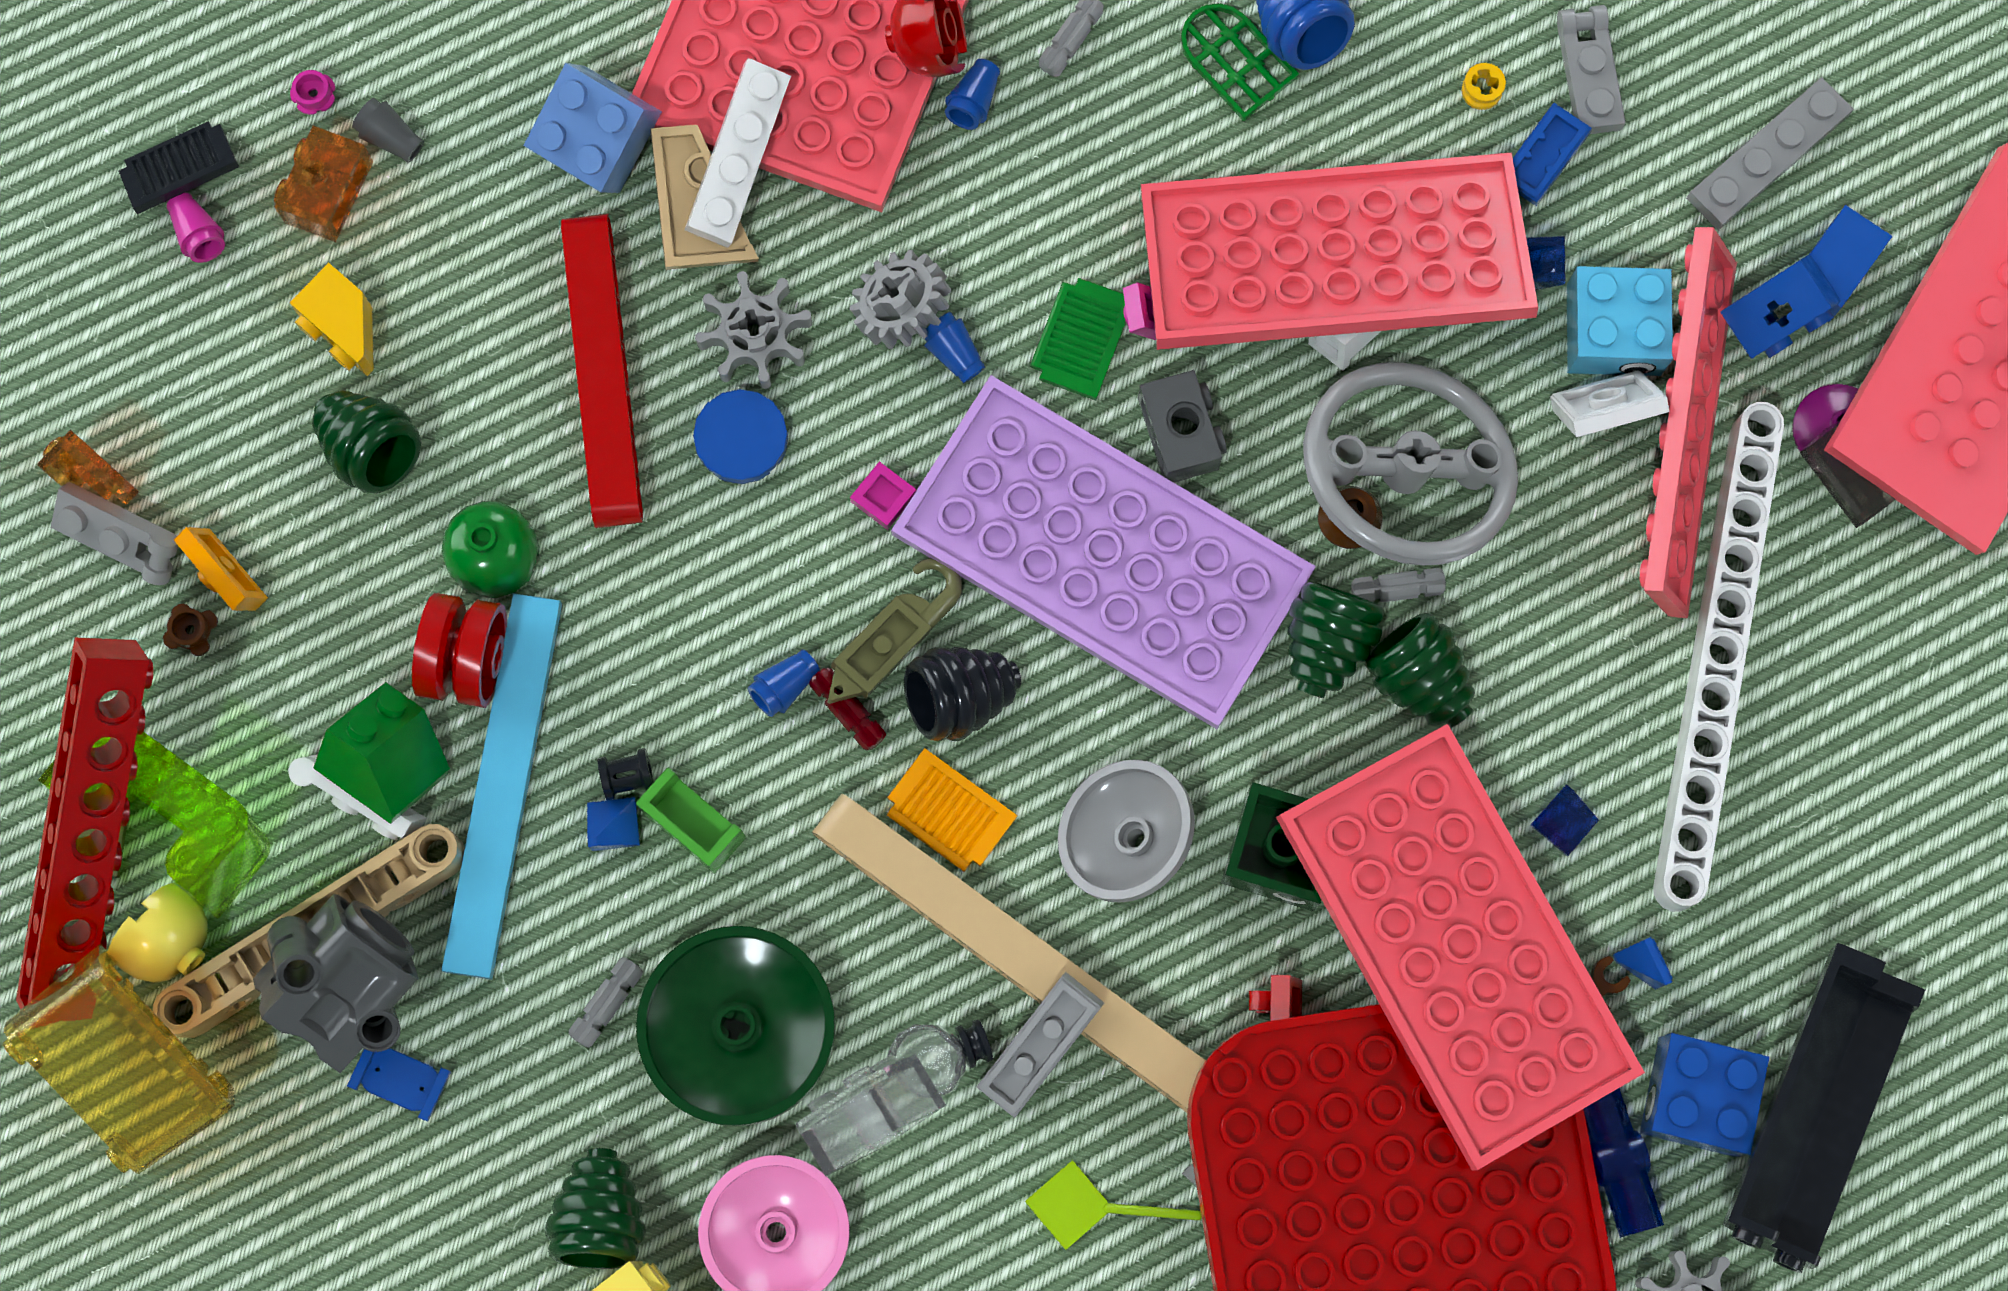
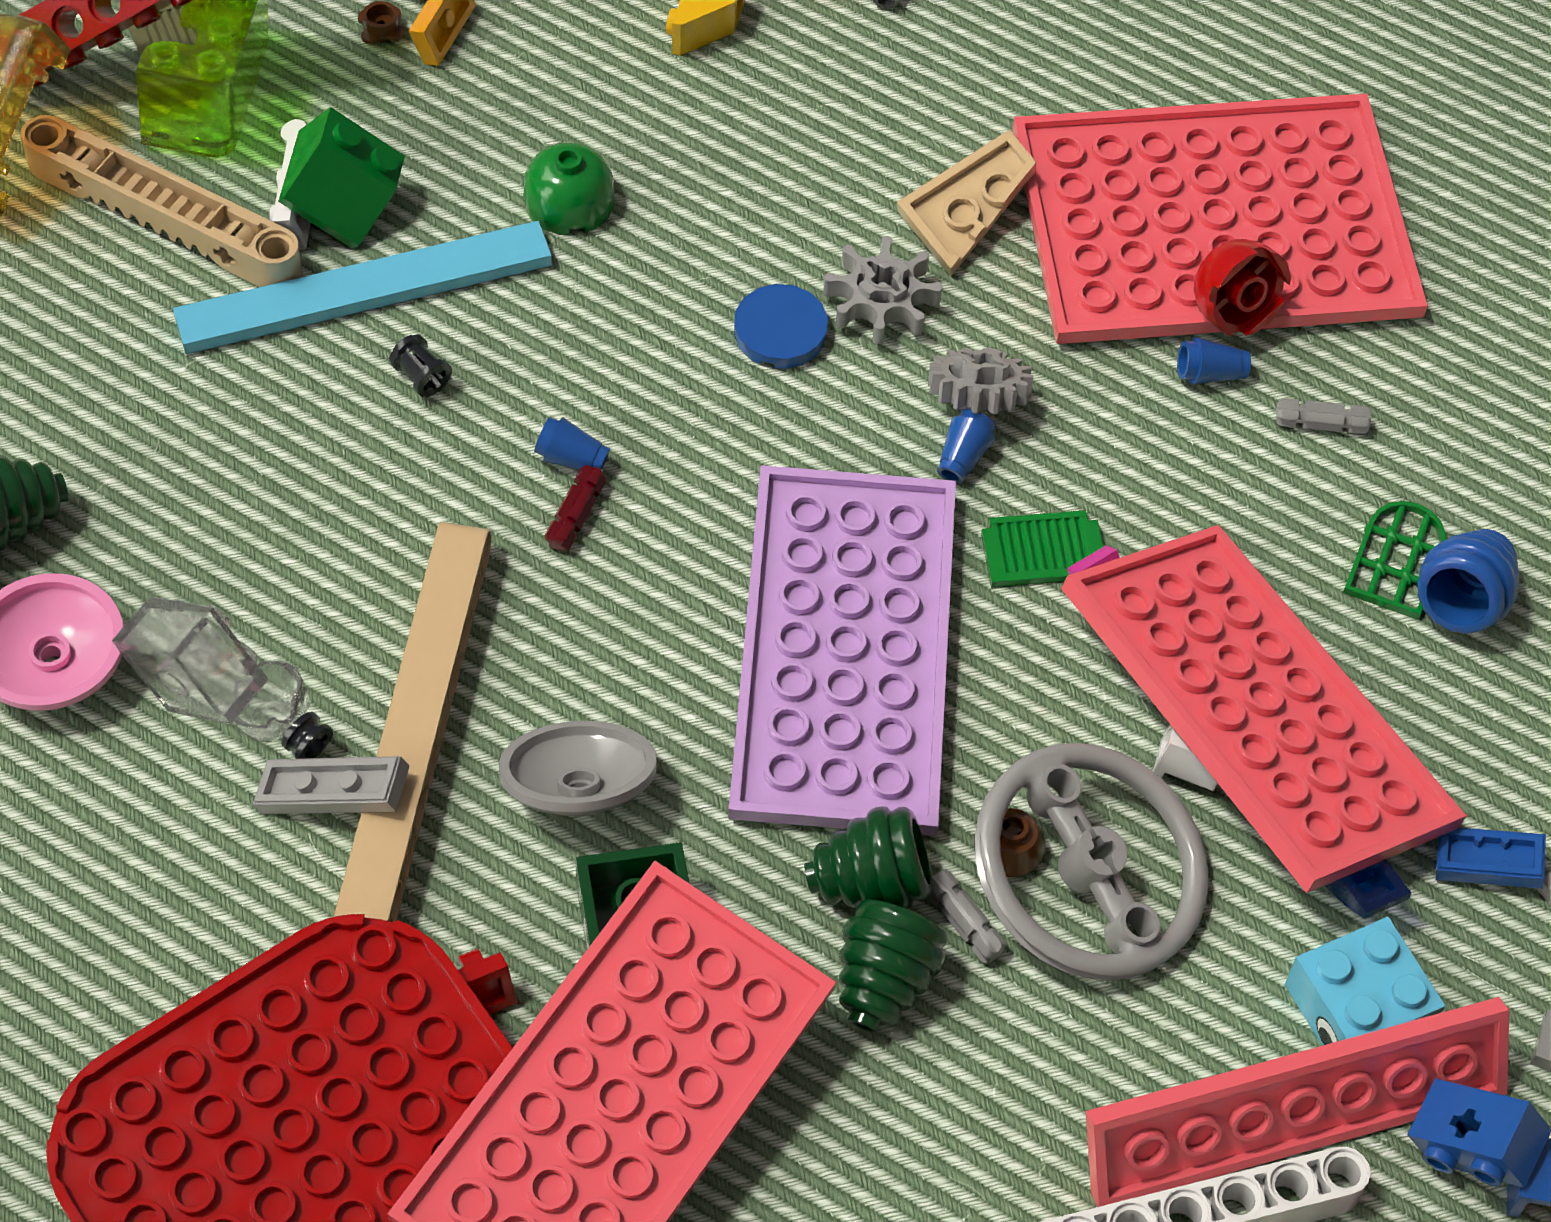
camera: 60 degrees right, 20 degrees down
(163, 938) = (99, 94): light yellow cylinder -> none
(336, 980) = (117, 213): dark grey piece -> none
(366, 440) = (607, 61): dark green piece -> none
(400, 1080) = (62, 321): blue piece -> none
(458, 650) = (459, 187): red wheel -> none
(592, 128) = (982, 94): medium blue brick -> none
(601, 371) = (773, 199): red beam -> none
(605, 1002) = (204, 439): light grey axle -> none
(612, 824) = (369, 379): blue slope -> none
(690, 820) = (402, 427): bright green panel -> none
(735, 1026) = (228, 532): dark green dish -> none
(737, 153) = (1031, 202): white plate -> none
(883, 495) = (791, 446): dark pink plate -> none
(891, 637) = (659, 509): olive plate -> none
(948, 812) = (523, 632): light orange window -> none
(958, 690) = (640, 577): black piece -> none
(1073, 1205) = (192, 897): lime piece -> none
(1179, 454) = (1015, 632): dark grey brick -> none
(1494, 78) = (1526, 762): yellow bush -> none
(1565, 820) = (814, 1178): clear blue slope -> none
(1609, 403) = (1265, 1009): white tile -> none

